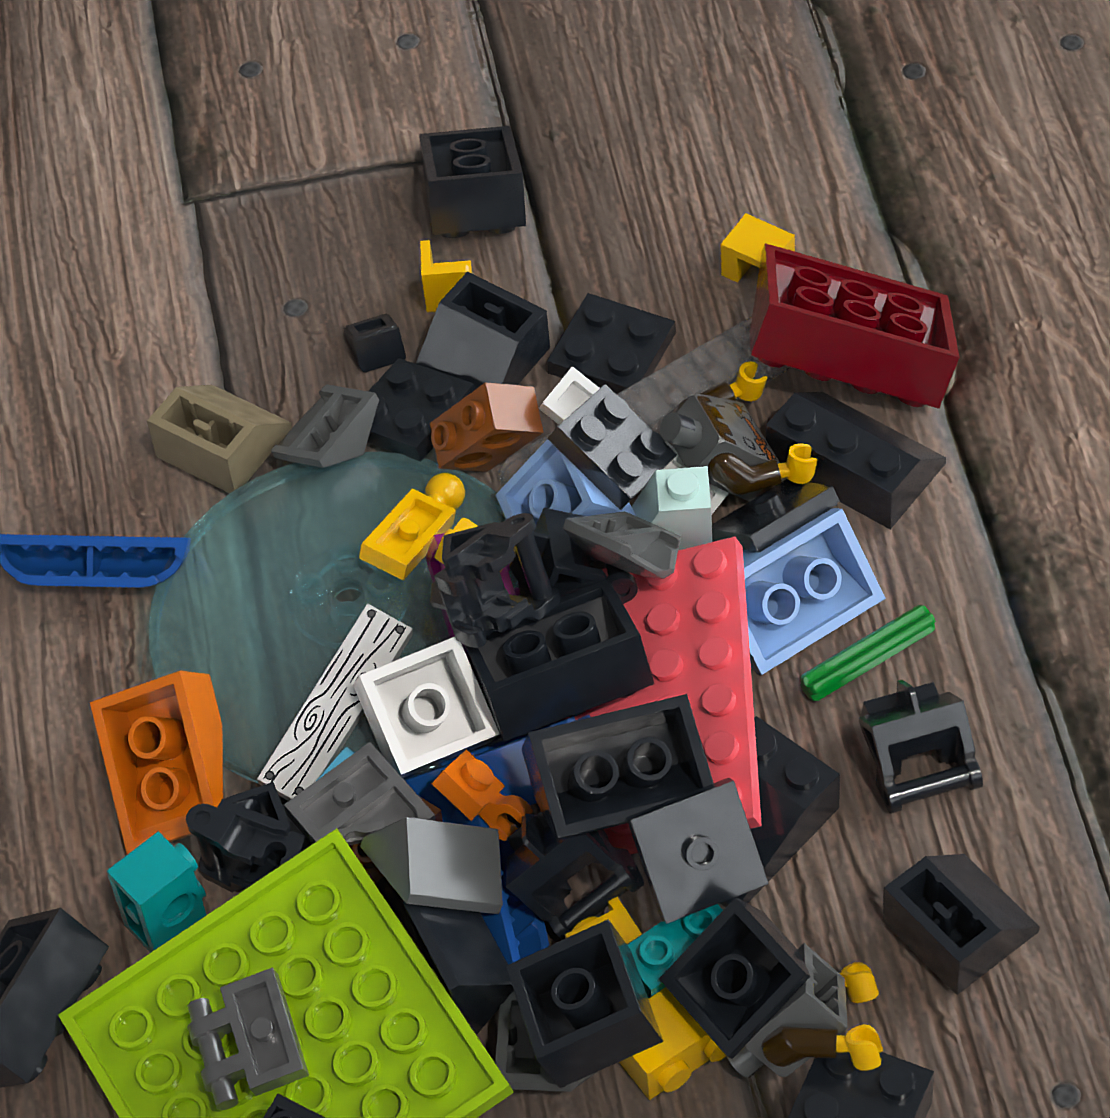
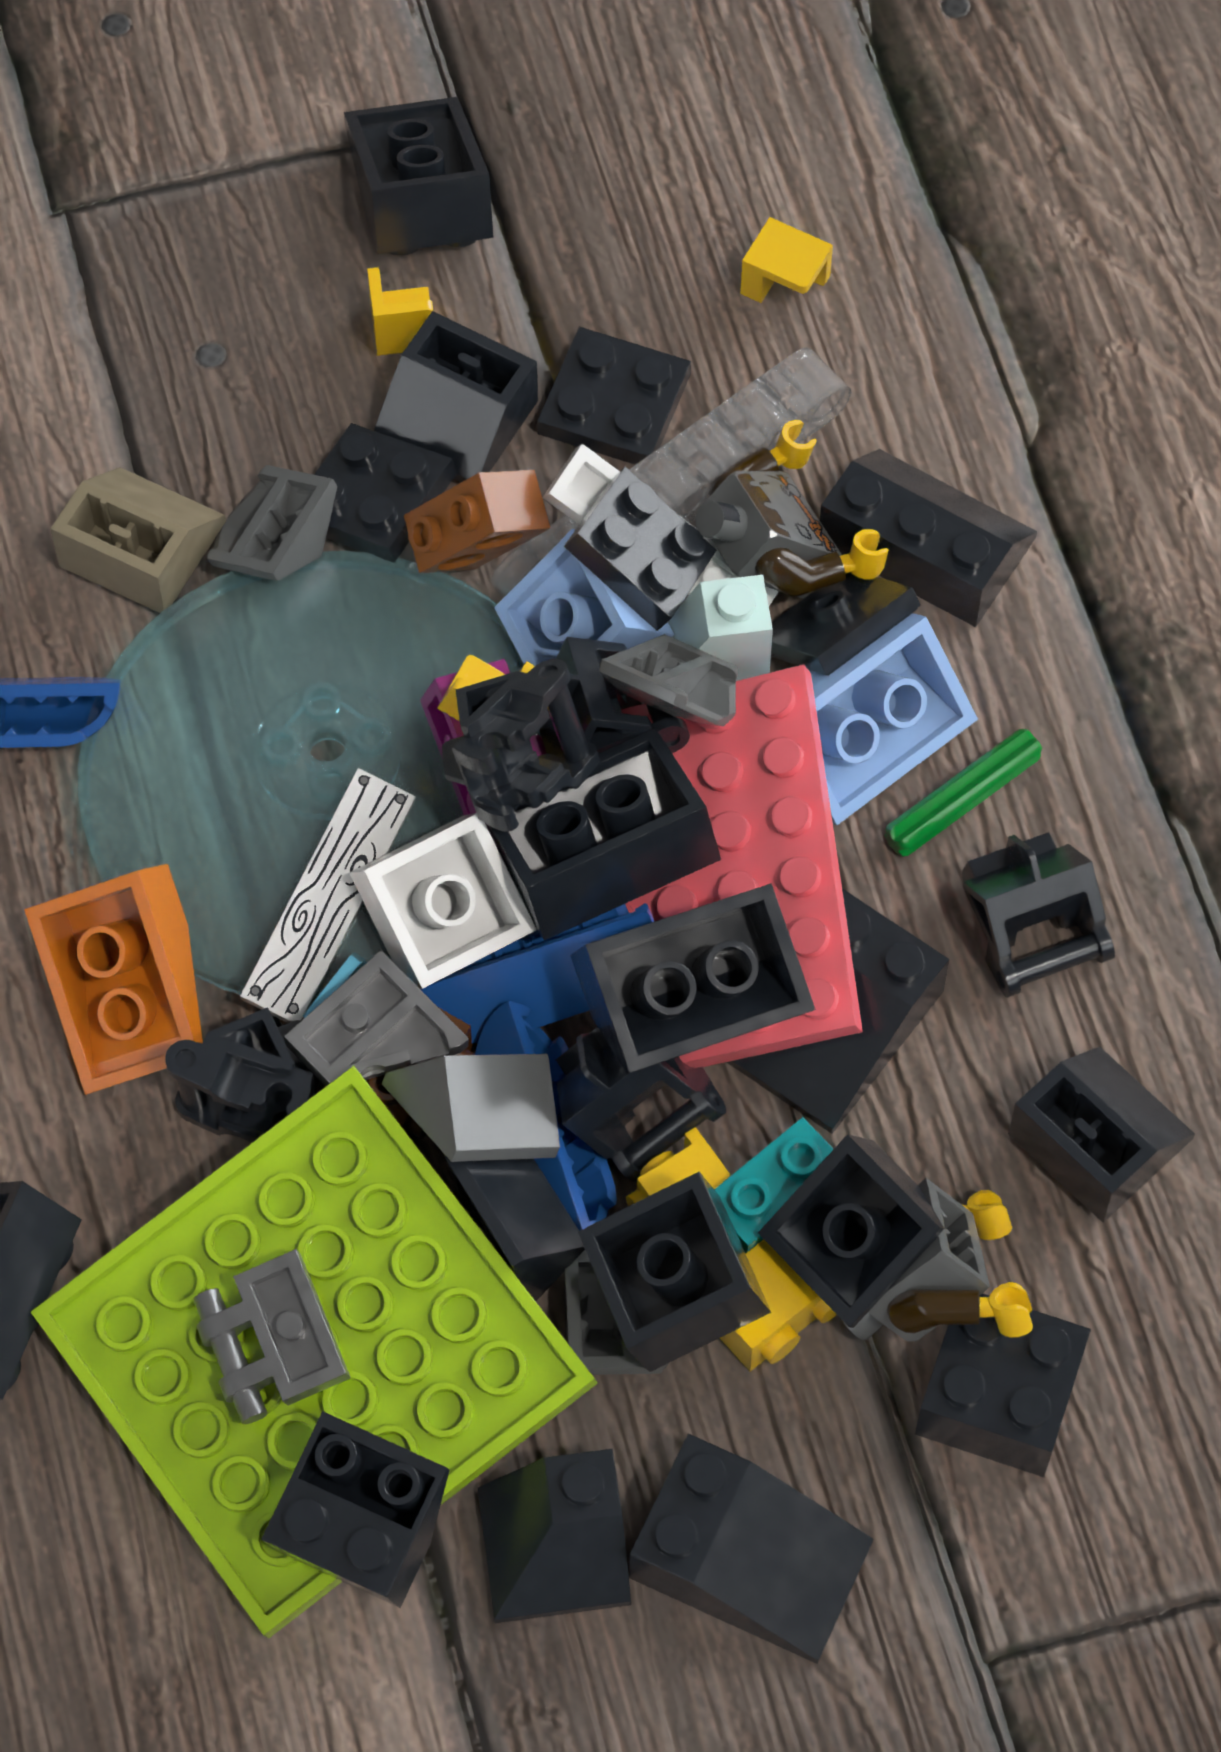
camera: 10 degrees left, 10 degrees up
(157, 891) = (137, 1151): teal brick -> none
(375, 342) = (318, 400): black slope -> none
(408, 529) = (403, 660): yellow plate -> none
(476, 791) = (514, 1006): orange plate -> none
(697, 850) = (794, 1074): plate -> none
(853, 327) = (915, 367): dark red slope -> none

